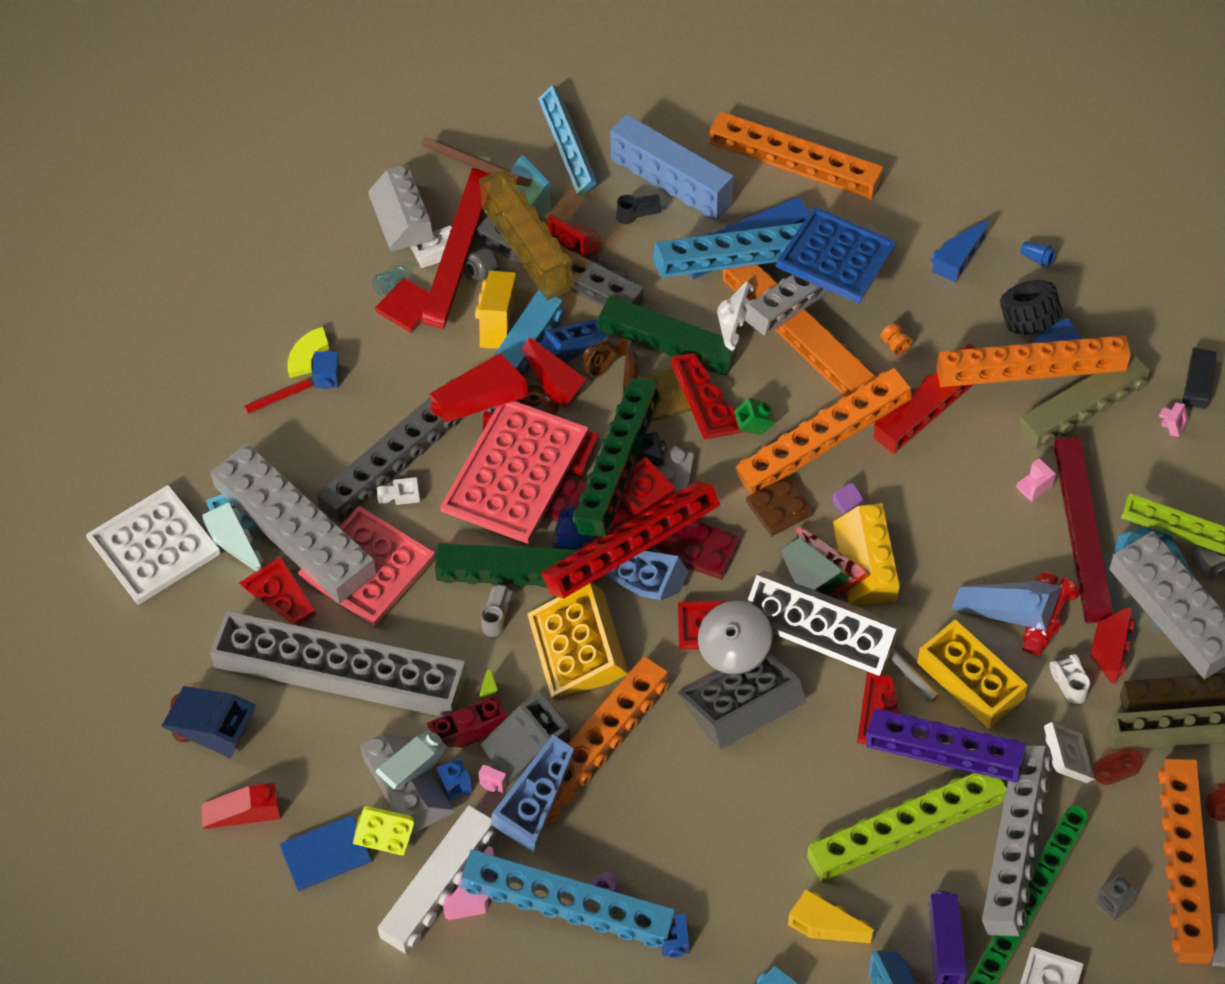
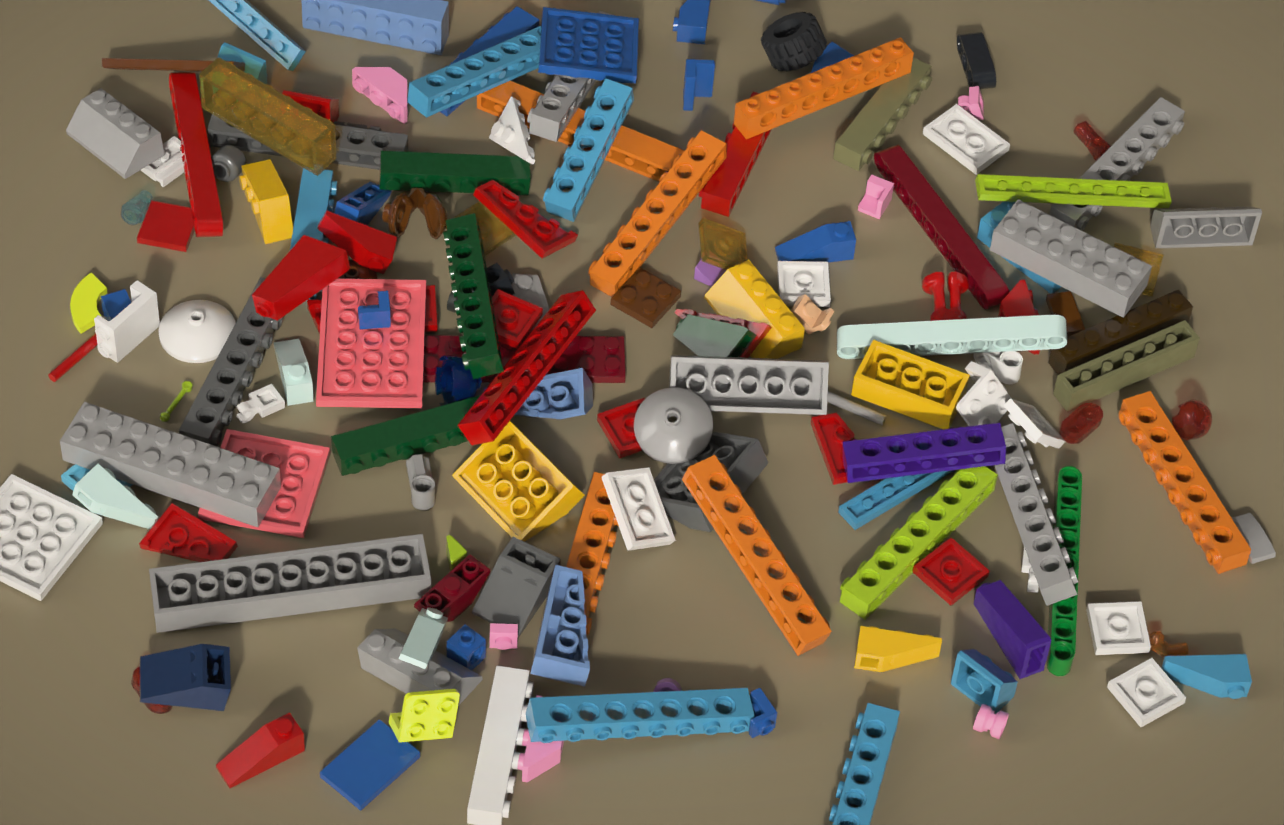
camera: 30 degrees left, 5 degrees down
(325, 385) = (130, 326): none -> white panel
(350, 455) = (186, 387): none -> lime hinge
(379, 416) = (192, 339): none -> white dish
(441, 471) = (294, 372): none -> light aqua slope
(525, 445) = (375, 315): none -> blue panel
(630, 207) = (366, 57): black piece -> none
(645, 233) = (383, 88): none -> bright pink slope
(664, 704) = (638, 508): none -> white plate
(751, 878) = (800, 635): none -> orange brick
(754, 416) = (582, 220): green brick -> none
(805, 348) = (569, 203): none -> dark azure brick
(869, 480) = (721, 244): none -> clear yellow plate
(894, 336) = (678, 110): orange wheel -> none
(895, 772) = (885, 496): none -> dark azure plate
(916, 574) = (811, 315): none -> light nougat bracket
(920, 866) = (950, 571): none -> red plate
(923, 315) = (697, 81): none -> blue panel
(926, 541) = (802, 278): none -> white plate
(957, 510) = (824, 244): none -> blue slope
(1016, 603) = (925, 303): medium blue wedge -> none
(1029, 714) = (985, 399): none -> white bracket
(1036, 642) = (956, 336): none -> light aqua beam
(1116, 897) = (1140, 534): dark grey brick -> none
(1150, 451) = (966, 139): none -> white plate
(1158, 655) = (1065, 305): none -> reddish brown tile

